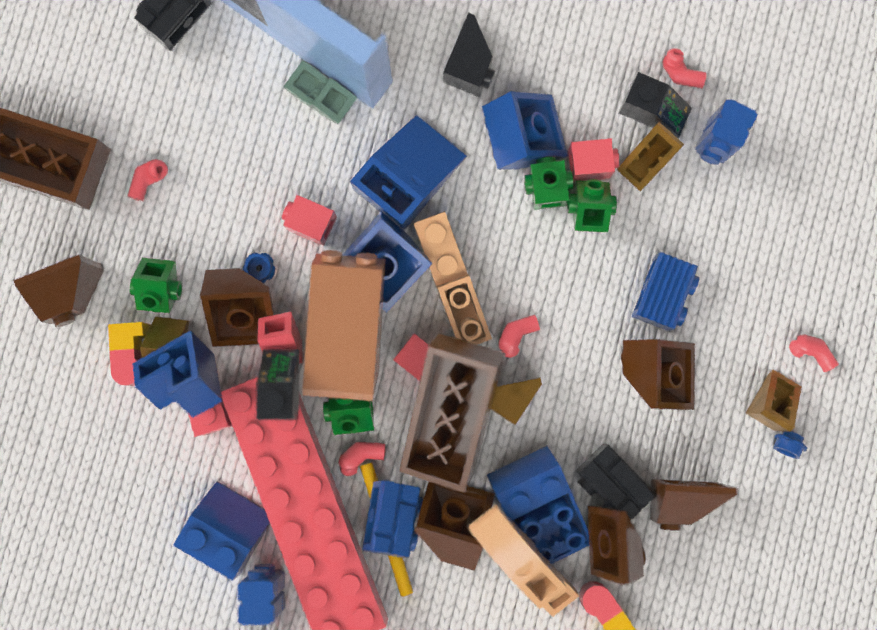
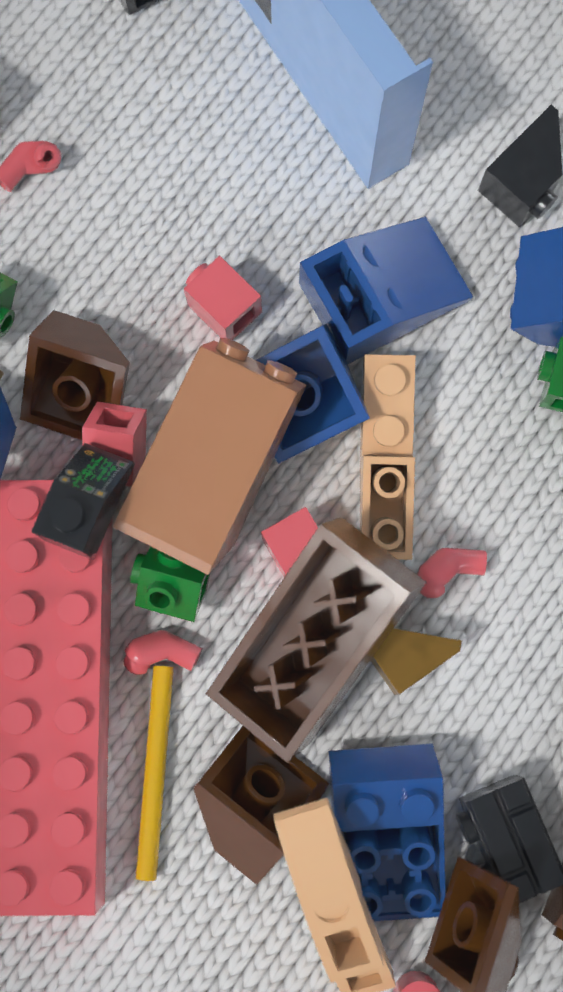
camera: 20 degrees right, 5 degrees down
(263, 260) = (130, 325): blue plate -> none
(319, 92) = (304, 140): sand green slope -> none
(392, 519) = (168, 760): blue brick -> none

